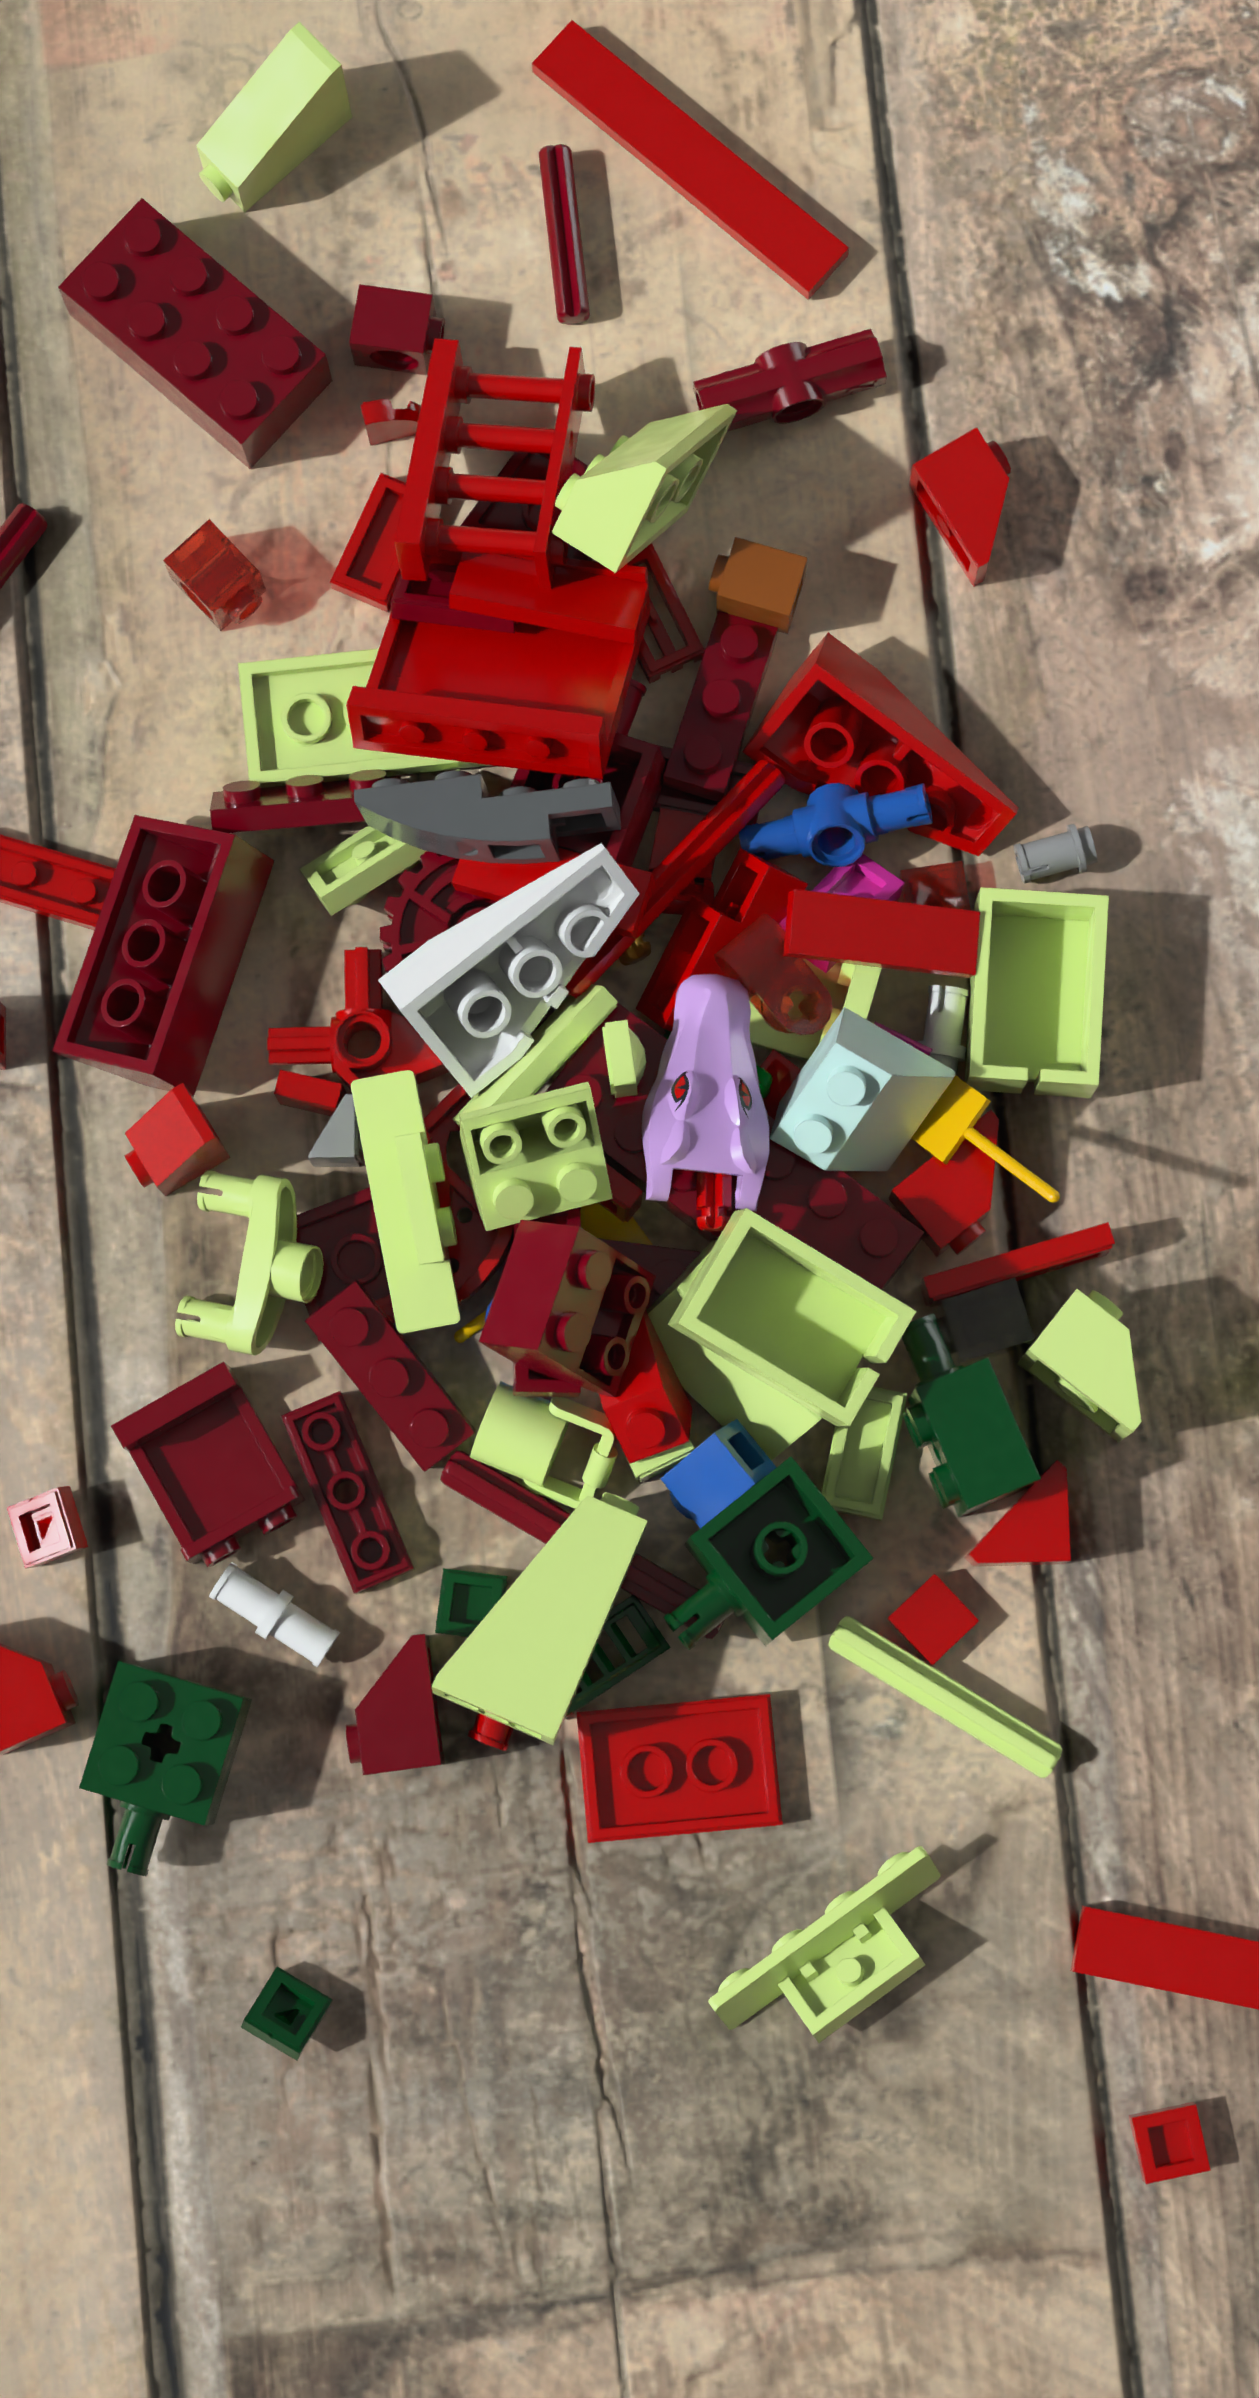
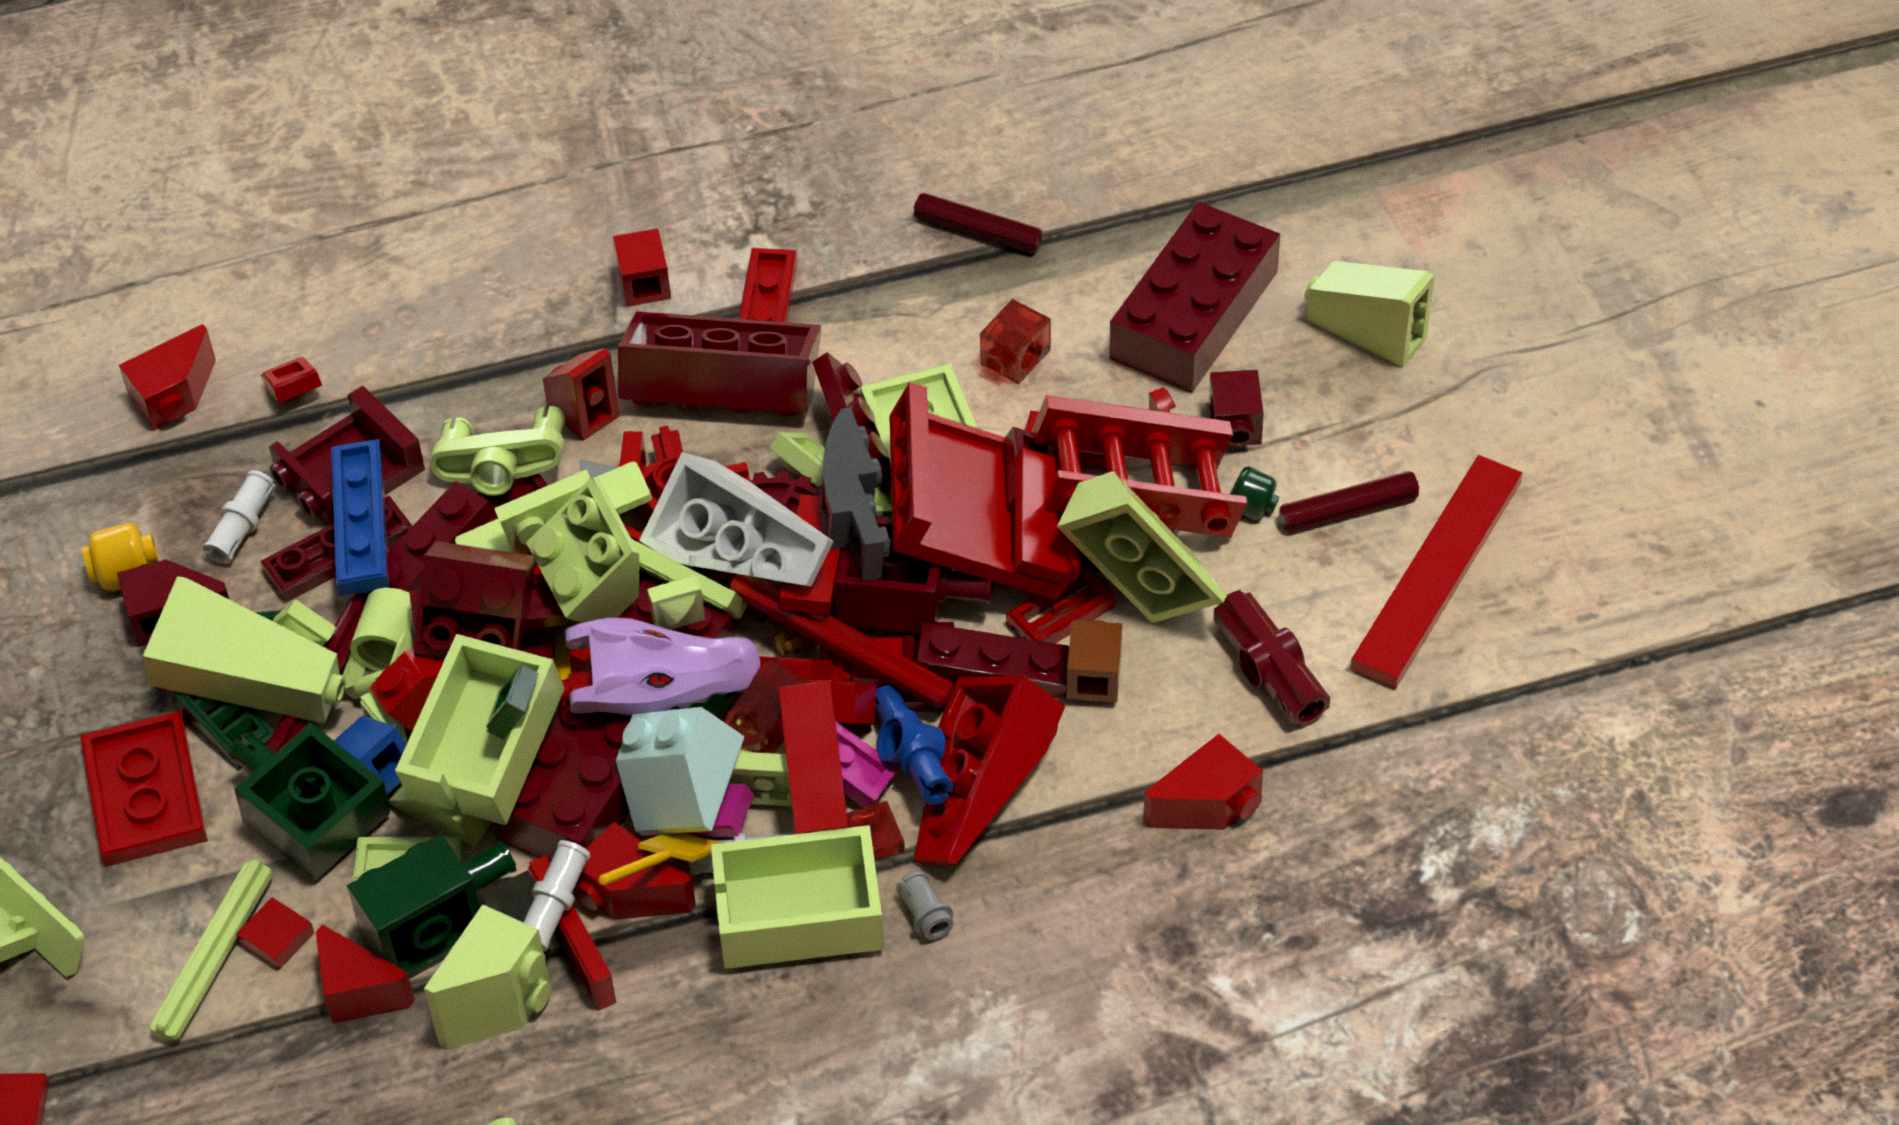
camera: 75 degrees right, 30 degrees down
(129, 1767) = (129, 467): dark green brick -> none
(313, 1775) = (117, 550): none -> yellow head
(331, 1452) = (359, 517): none -> blue tile
(497, 1546) = (305, 623): none -> yellowish green tile
(528, 344) = (1259, 492): none -> dark green piece
(794, 1266) = (511, 702): none -> dark green tile
(1002, 1272) = (554, 892): none -> white pin

